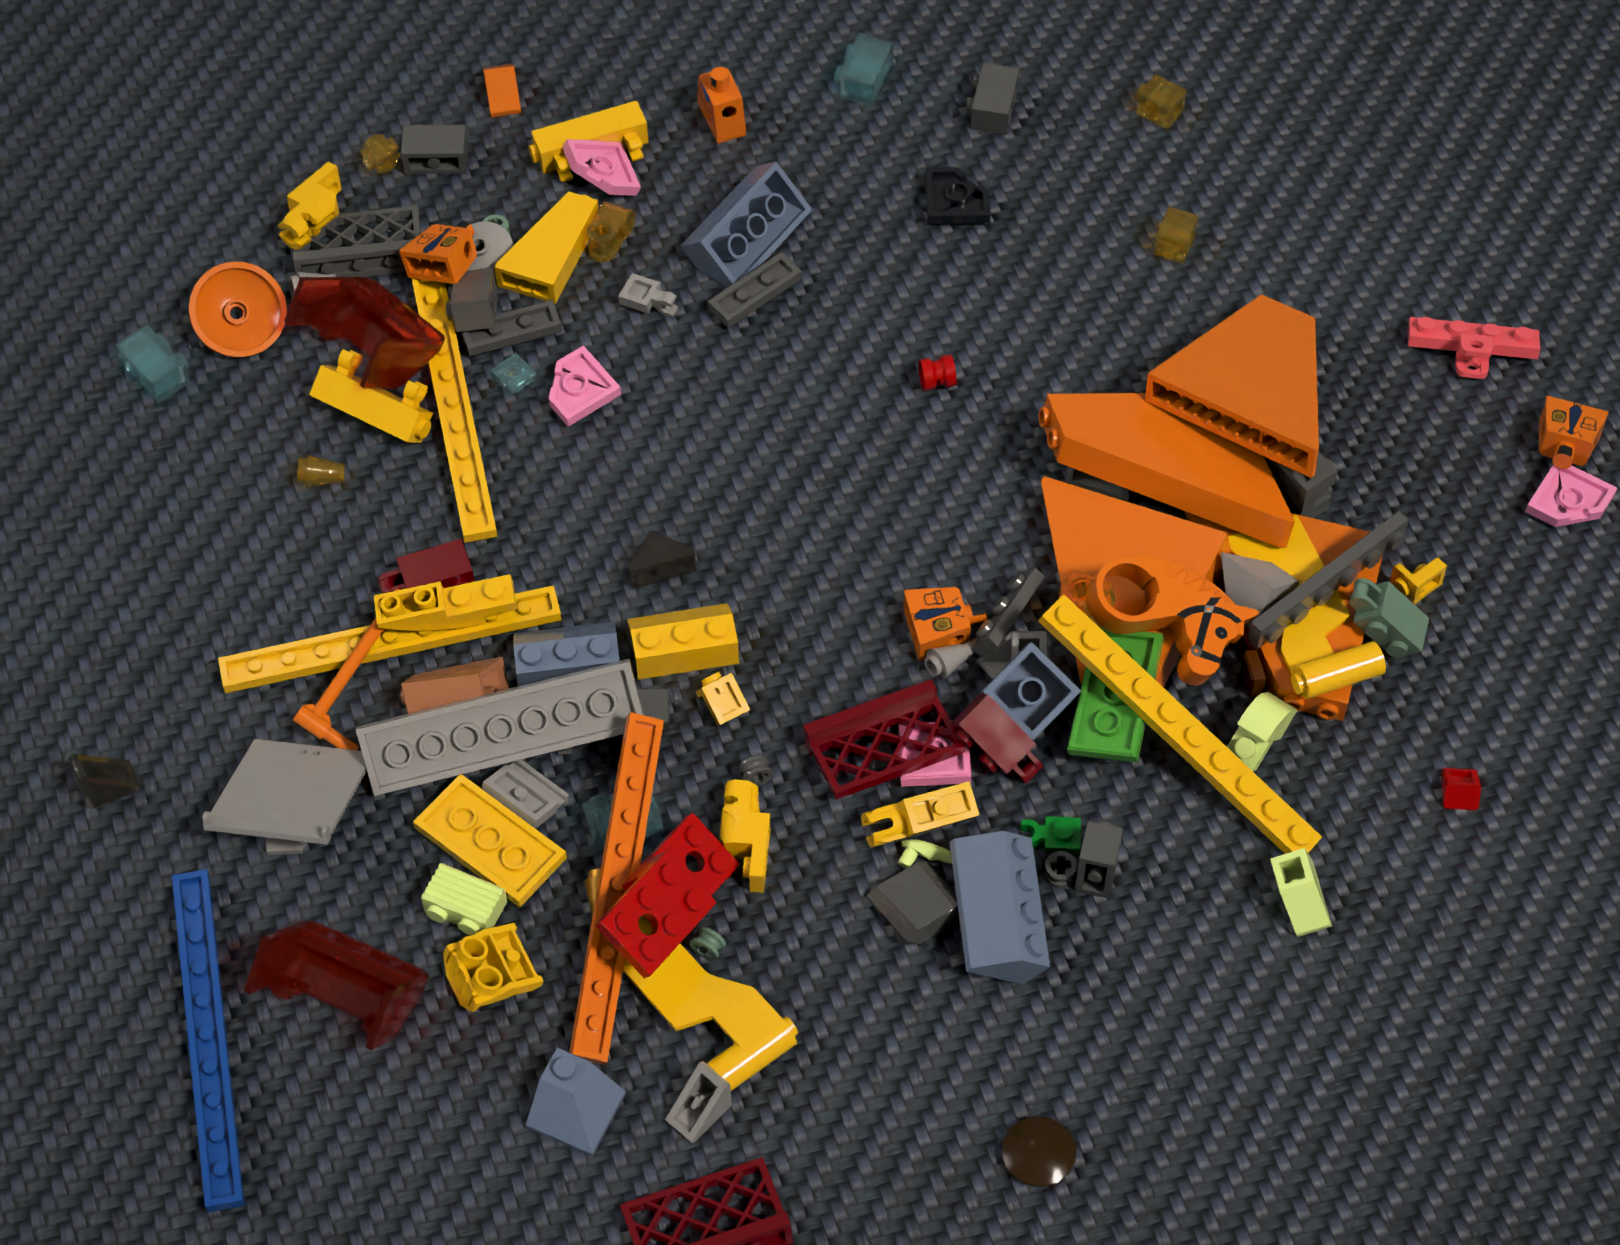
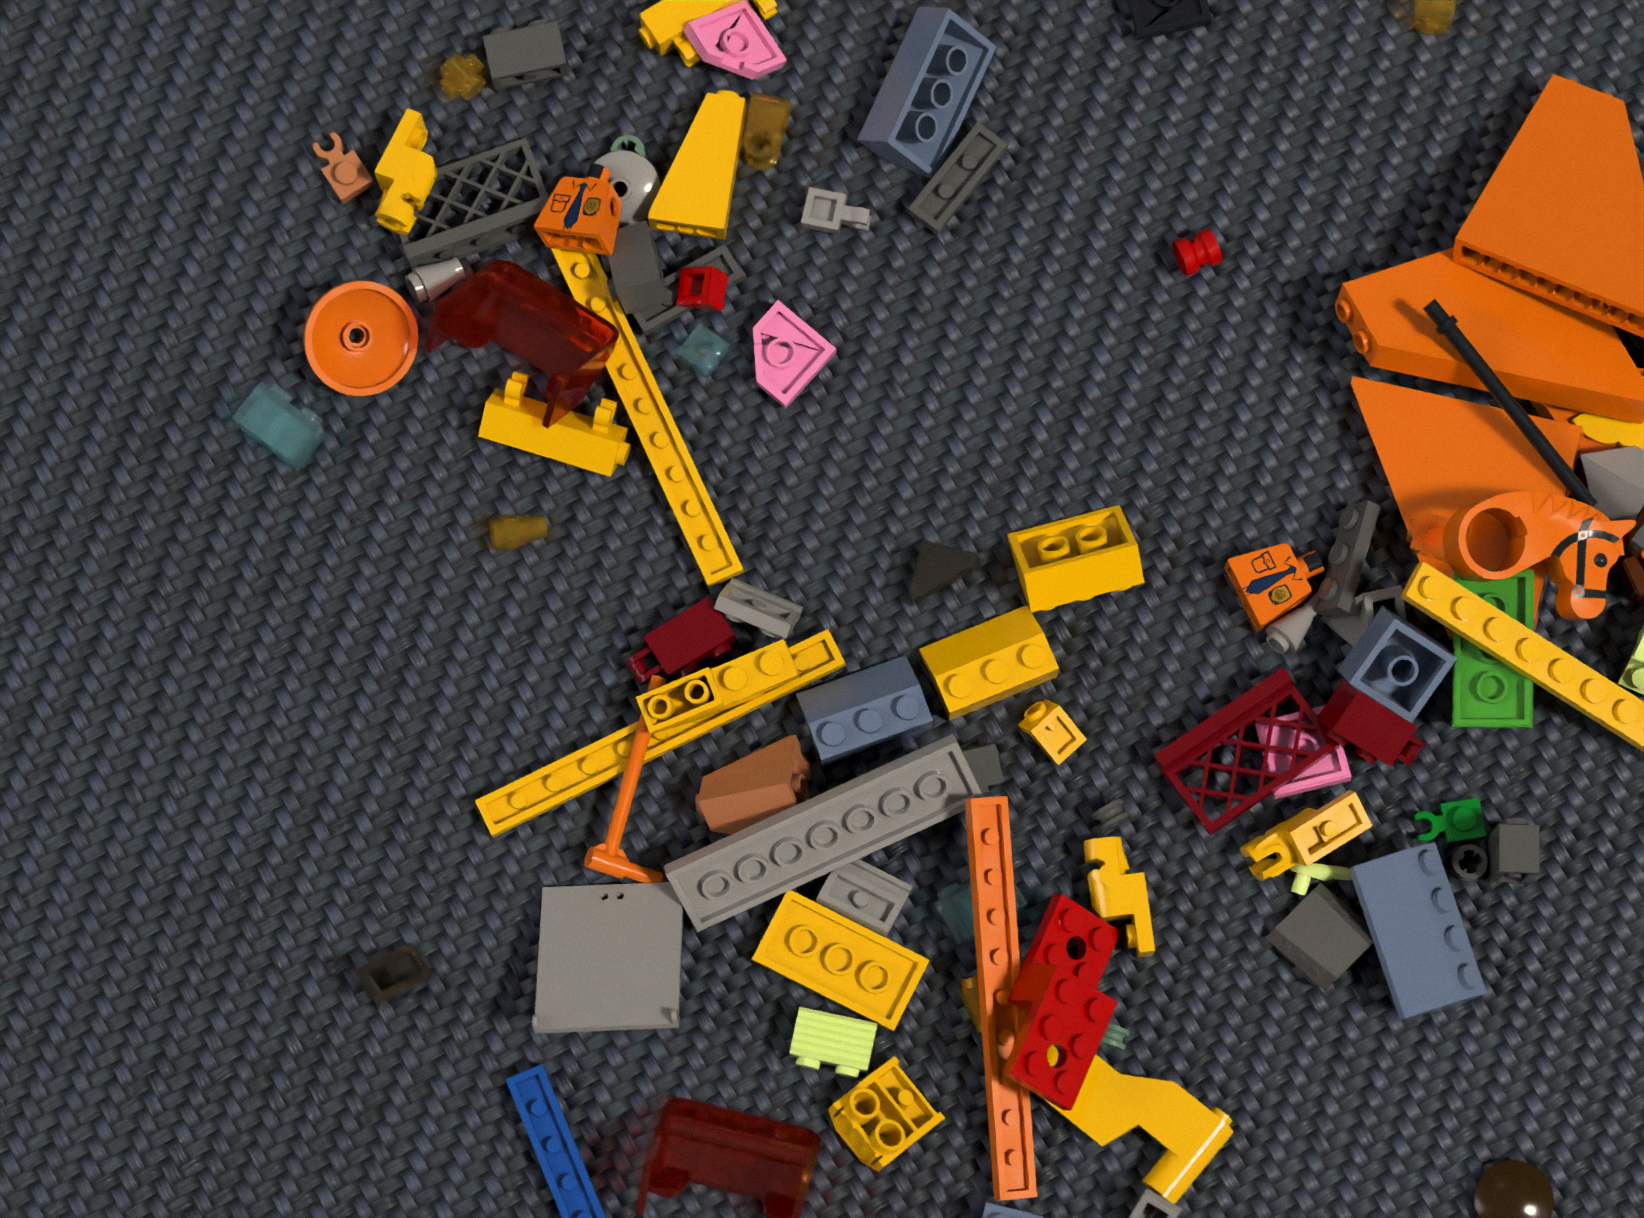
camera: 10 degrees left, 20 degrees up
(266, 203) = (345, 172): none -> nougat plate
(485, 552) = (757, 607): none -> light grey plate
(524, 324) = (702, 288): none -> red slope
(777, 575) = (1076, 558): none -> yellow slope
(1124, 428) = (1447, 327): none -> black bar

